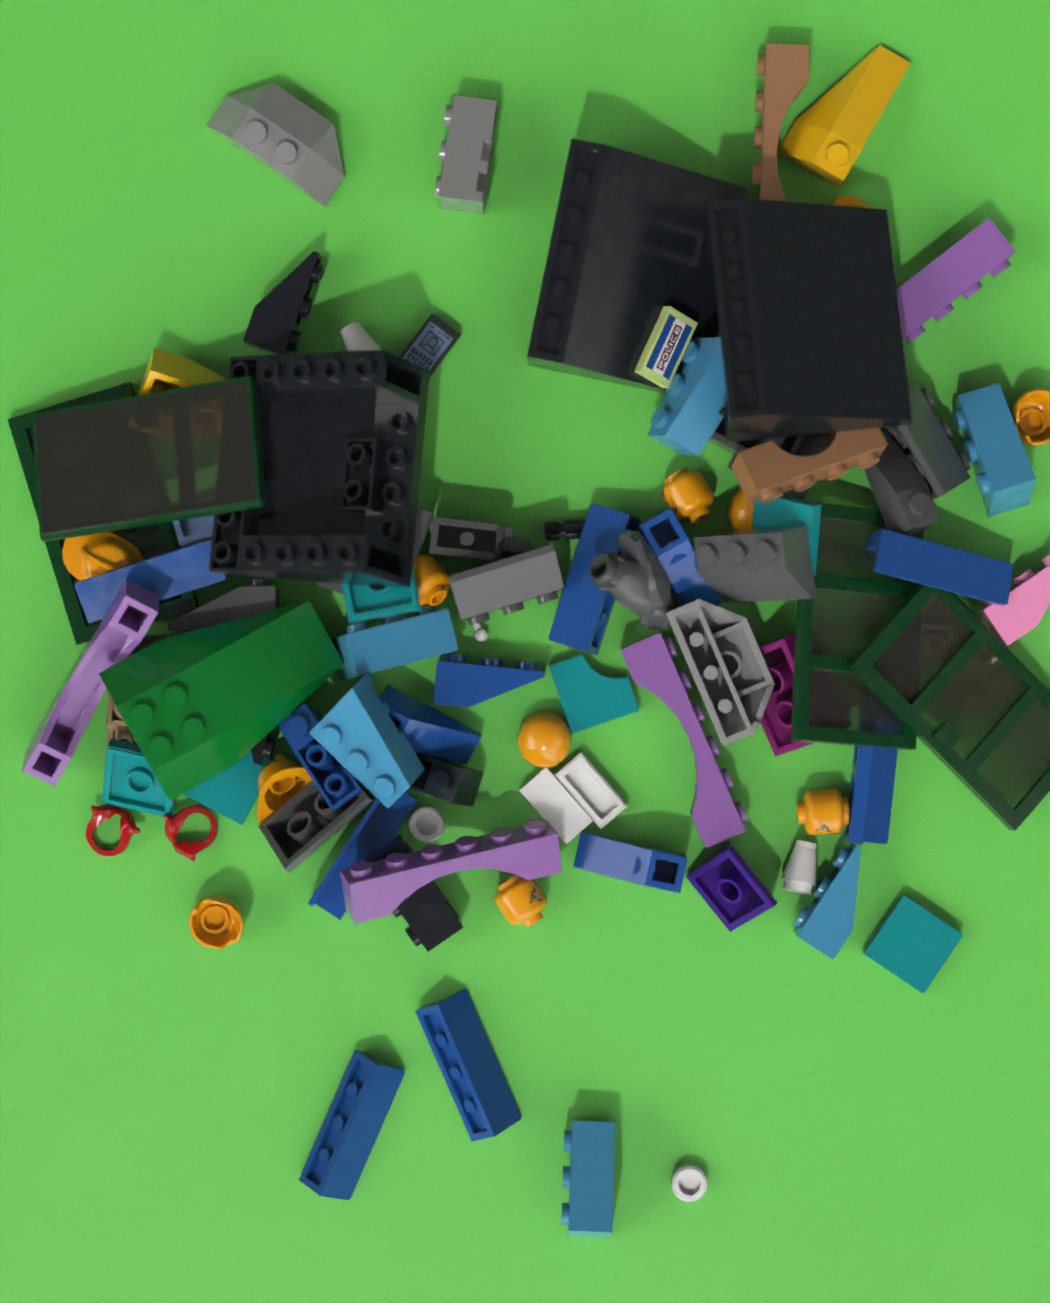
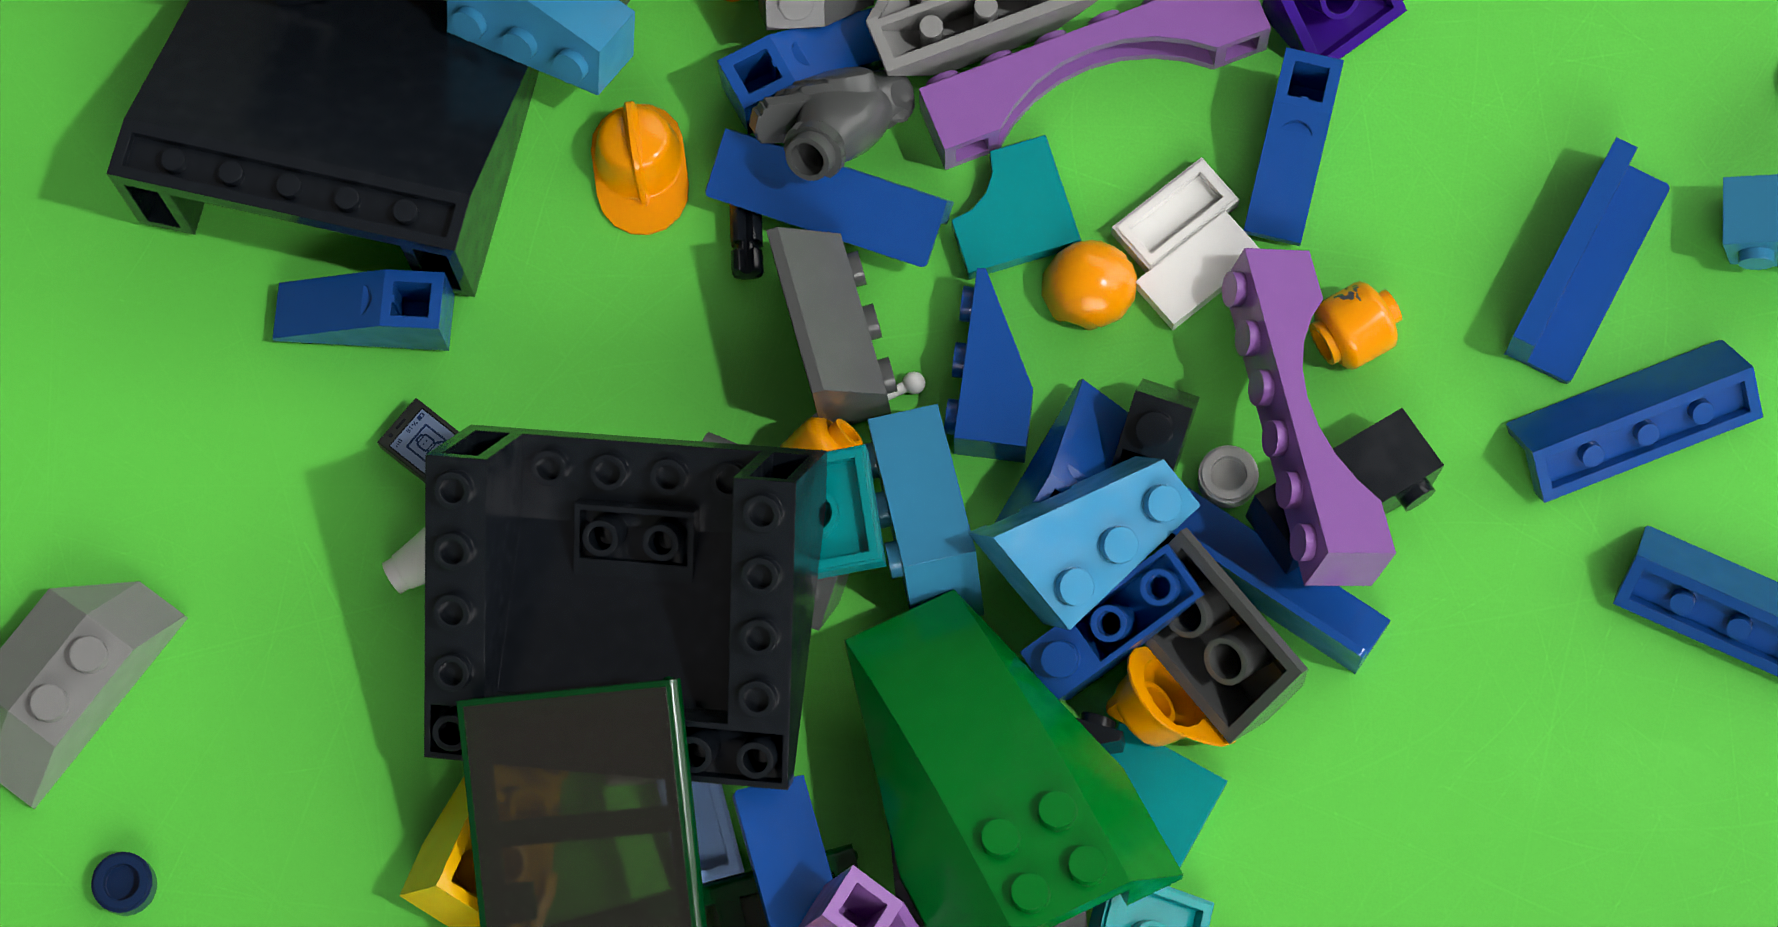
camera: 85 degrees left, 15 degrees down
(163, 184) = (124, 883): none -> dark blue tile
(175, 822) = (1222, 892): red piece -> none
(216, 921) = (1395, 823): light orange hair -> none
(235, 604) = (849, 775): dark grey slope -> none
(278, 315) = (366, 690): black slope -> none
(466, 154) = (123, 374): light grey wedge -> none
(475, 539) = (755, 374): dark grey hinge -> none
(512, 298) = (367, 310): none -> blue slope
(565, 1039) = (1588, 266): none -> blue panel
(615, 461) = (640, 168): none -> light orange piece
(665, 347) = (457, 59): tile -> none
(688, 495) = (693, 48): light orange head -> none

